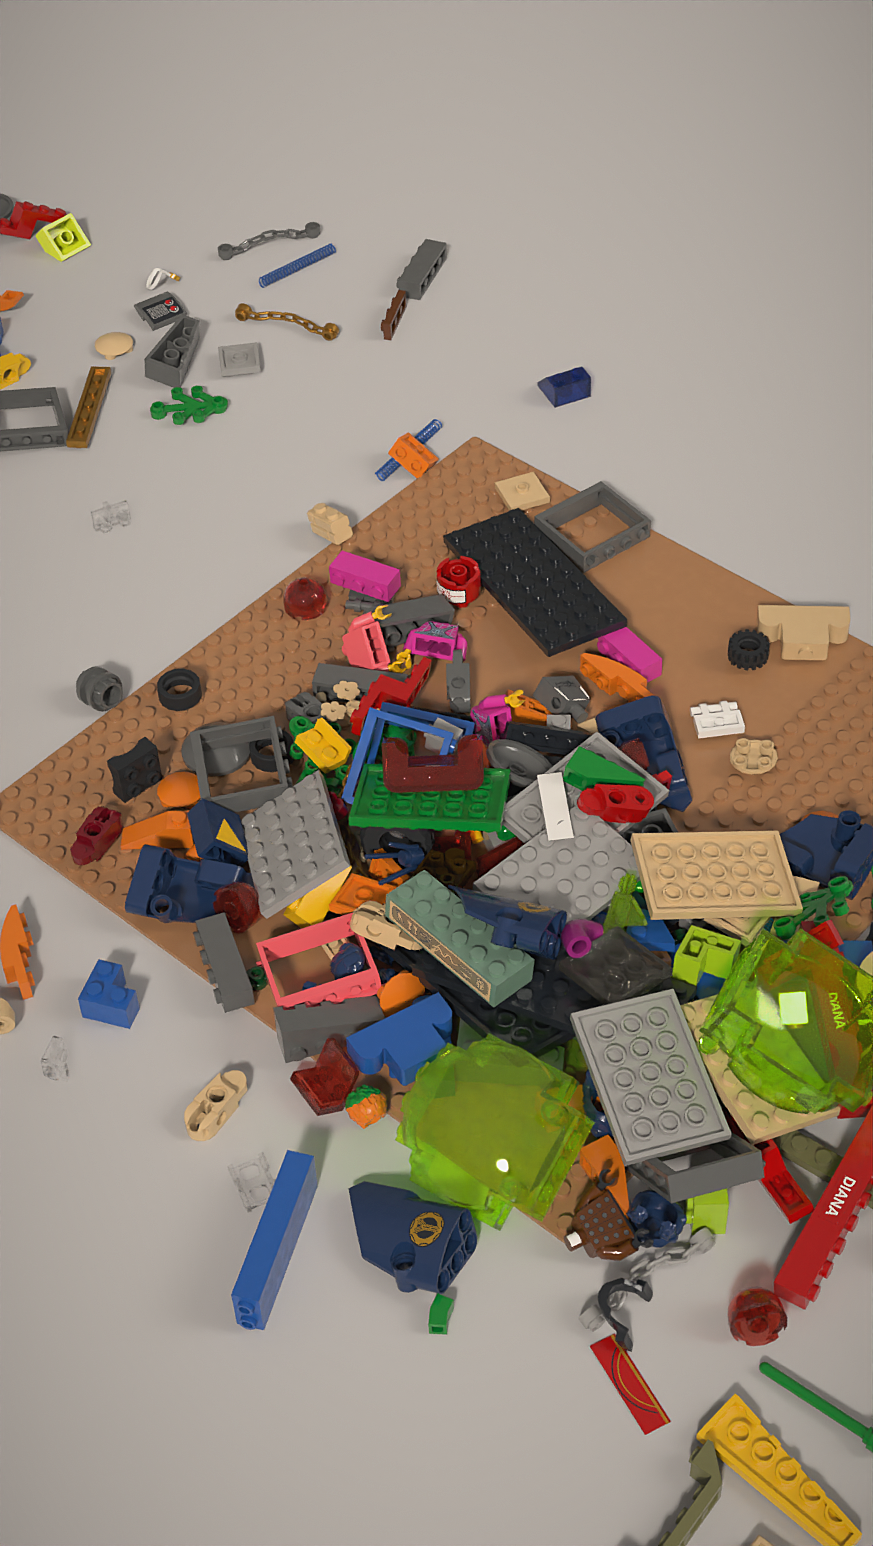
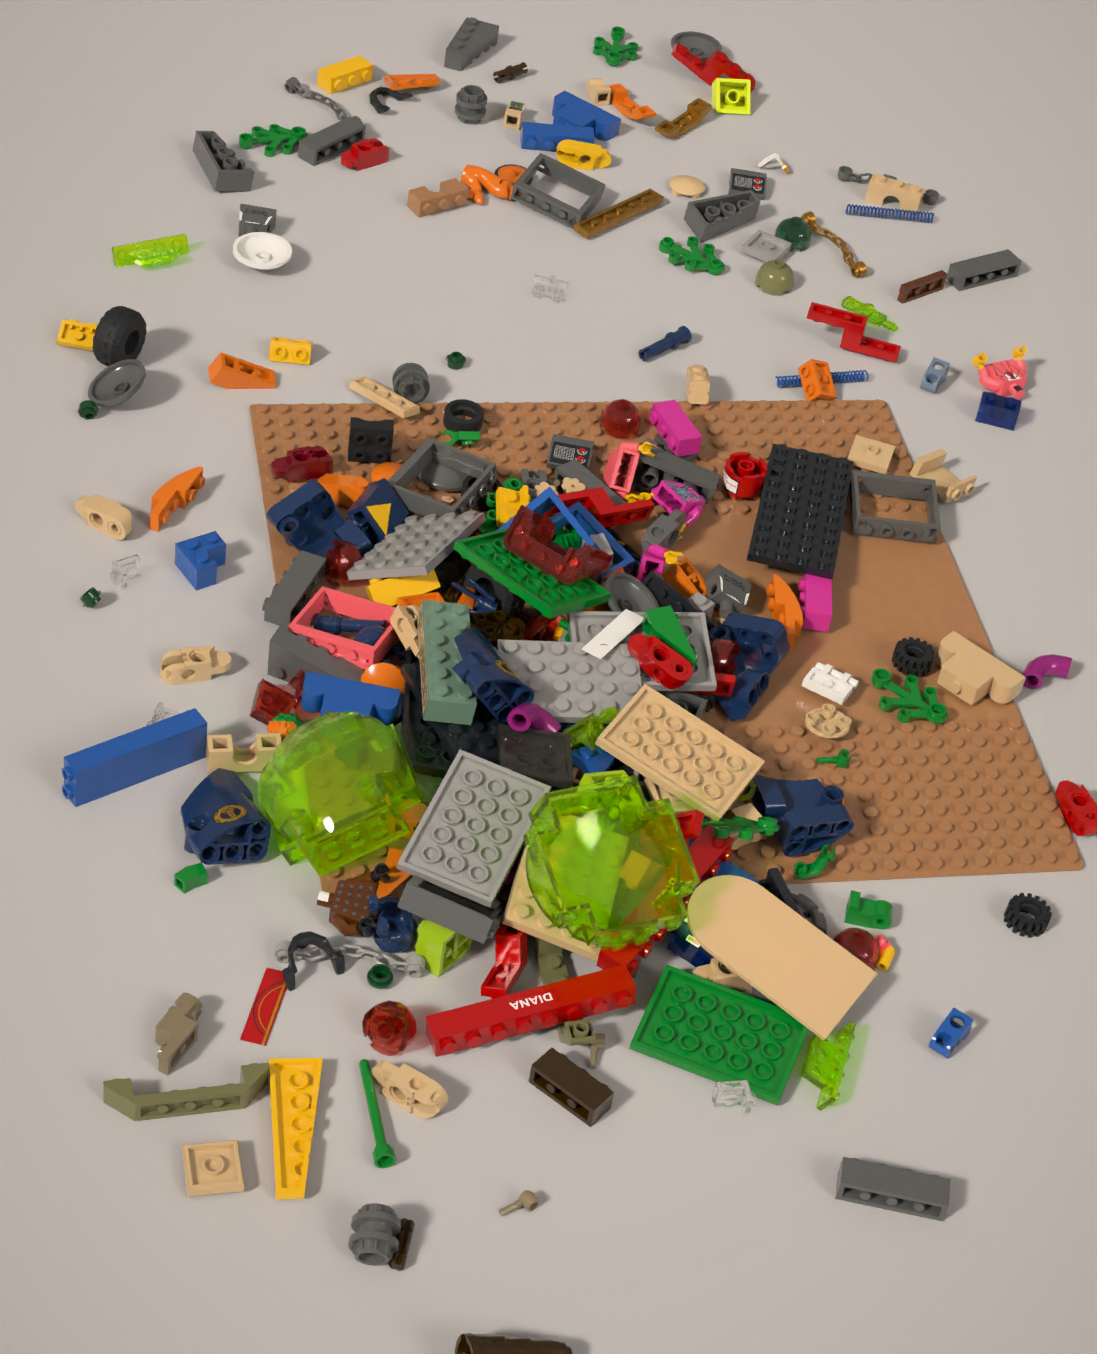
camera: 30 degrees right, 5 degrees down
(48, 283) = (685, 122): none -> pearl gold slope
(52, 1110) = (90, 597): none -> dark green plate
(89, 718) = (384, 397): none -> tan tile
(106, 639) = (455, 360): none -> dark green plate
(202, 707) = (466, 437): none -> green plate
(247, 330) = (796, 232): none -> clear green cylinder
(260, 497) = (671, 341): none -> dark blue pin
(271, 245) = (908, 195): none -> tan arch
(276, 383) = (775, 278): none -> olive cylinder
(297, 968) = (338, 624): none -> dark blue pin
(299, 659) = (565, 449): none -> slope
(372, 1143) = (224, 755): none -> tan arch
(380, 368) = (868, 310): none -> clear neon green piece
(394, 391) = (853, 335): none -> red bracket
(491, 390) = (933, 378): none -> sand blue leg
(540, 352) = (1003, 377): none -> coral torso
(583, 477) = (947, 485): none -> tan panel
(596, 1474) = (177, 1031): none -> dark tan plate
(691, 1268) = (380, 976): none -> dark green plate
(795, 783) = (841, 760): none -> green hand
(811, 687) = (933, 711): none -> green plant
(828, 1359) = (410, 1089): none -> tan piece
(840, 584) = (1044, 667): none -> magenta cylinder

